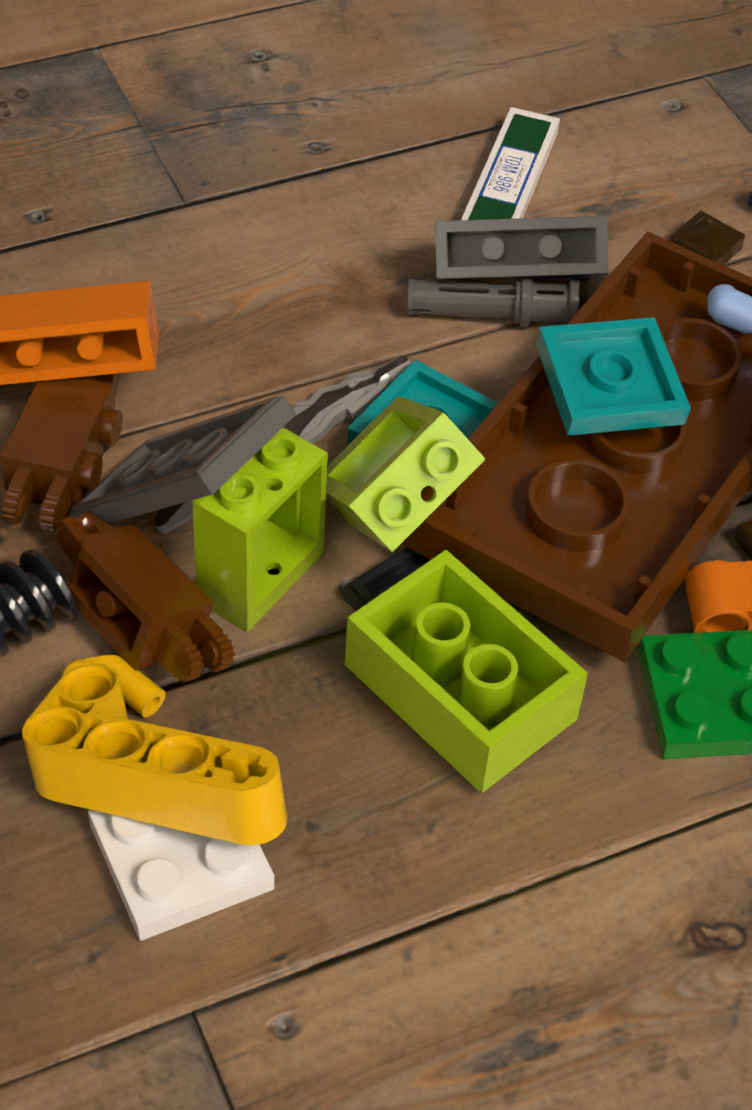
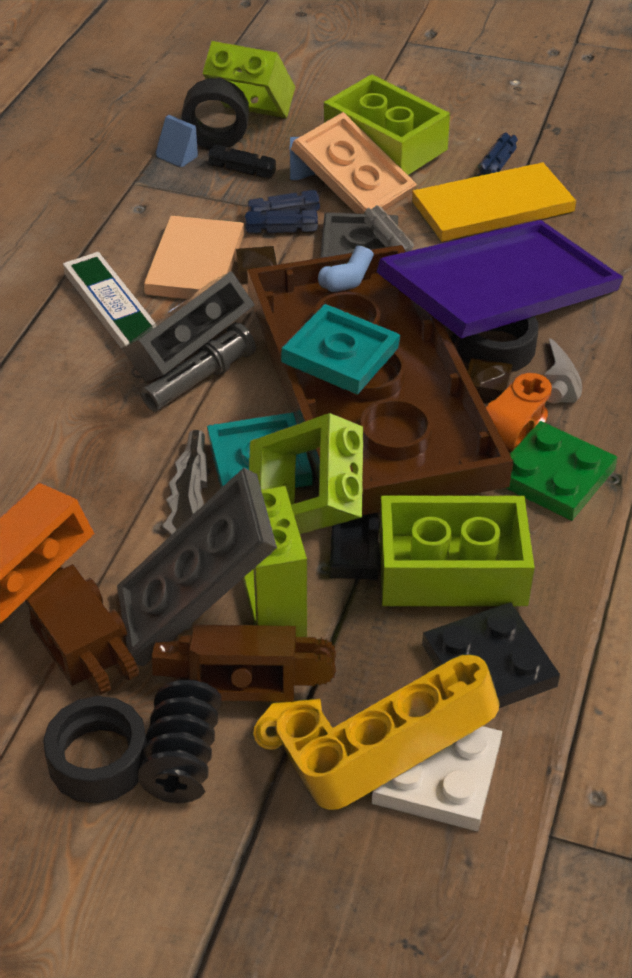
camera: 45 degrees left, 5 degrees down
(370, 806) = (505, 644): none -> black plate
(653, 190) = (192, 255): none -> light nougat tile

